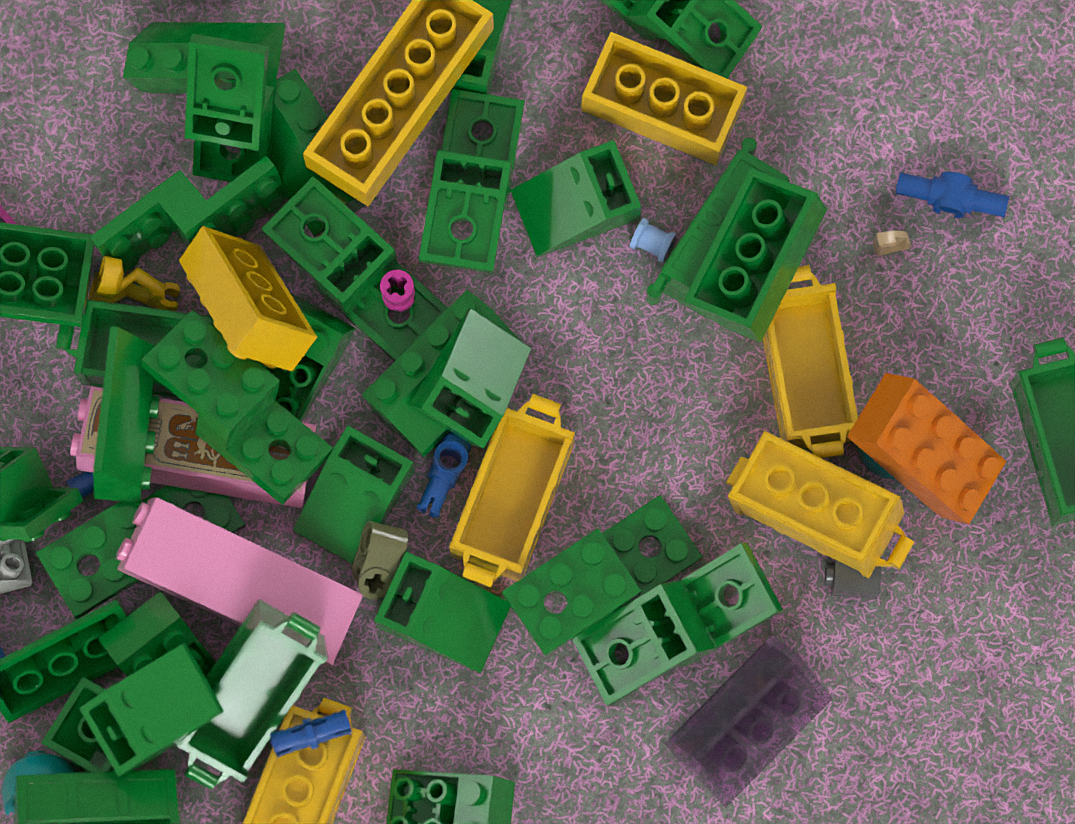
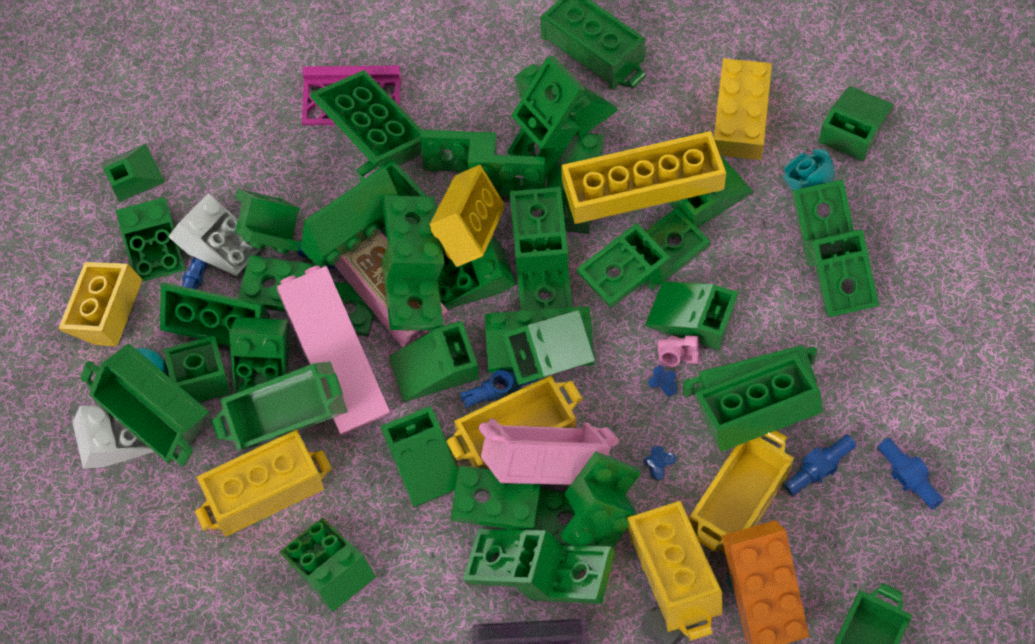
camera: 45 degrees right, 15 degrees down
(111, 287) = (412, 164): yellow piece -> none
(151, 710) = (221, 366): green slope -> none
(310, 733) = (291, 450): blue pin -> none
(378, 558) = (416, 398): olive piece -> none
(400, 280) = (552, 278): dark pink bush -> none
(584, 498) = (541, 453): none -> bright pink container
(595, 260) = (676, 349): none -> bright pink plate
(614, 304) = (663, 380): none -> blue piece
(652, 240) = (713, 358): light blue bush -> none
(663, 98) = (787, 296): yellow brick -> none
(684, 503) = (600, 502): none -> green bracket
(688, 401) = (657, 461): none -> blue piece
(856, 263) = (819, 464): none -> blue pin
(891, 242) = (852, 470): tan tile -> none

